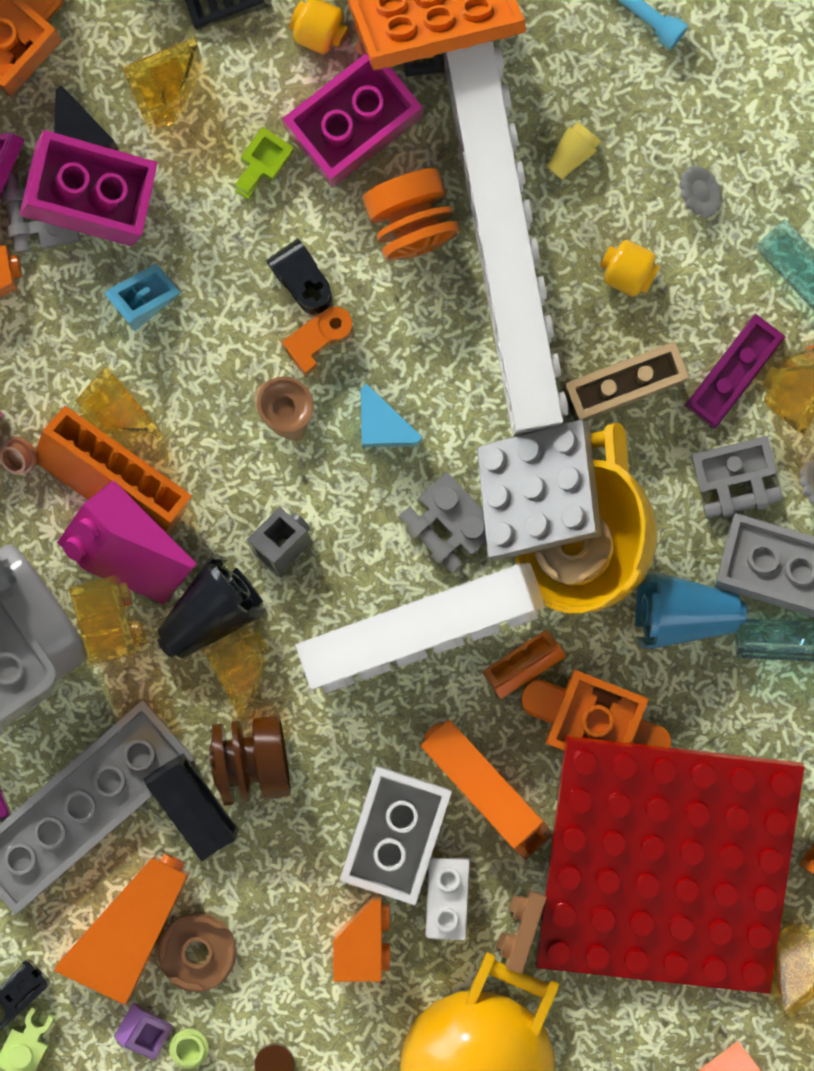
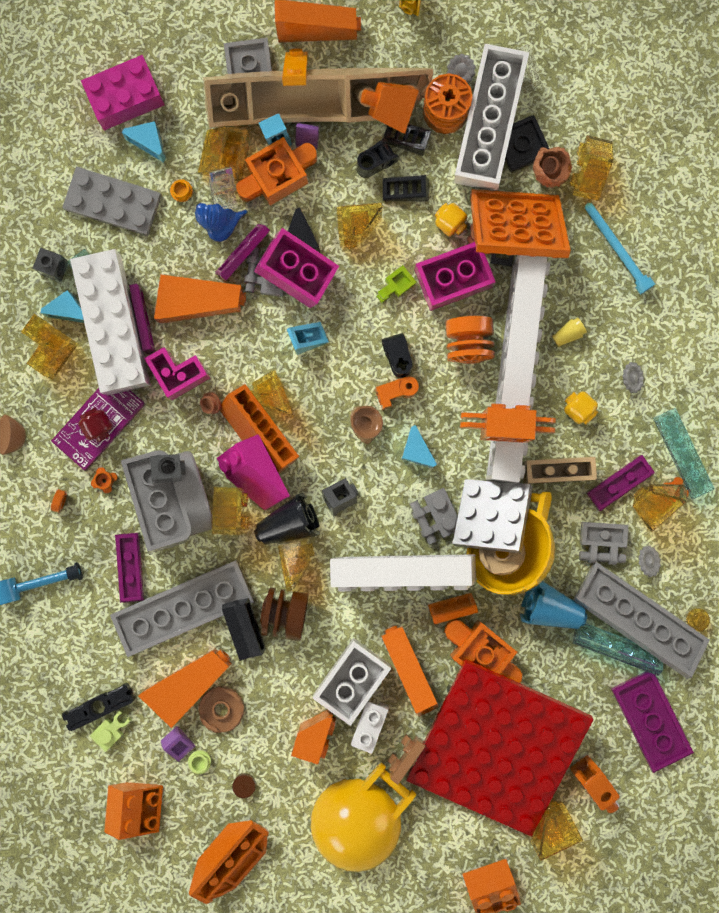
camera: 15 degrees right, 0 degrees up
(511, 333) = (508, 424): none -> orange brick

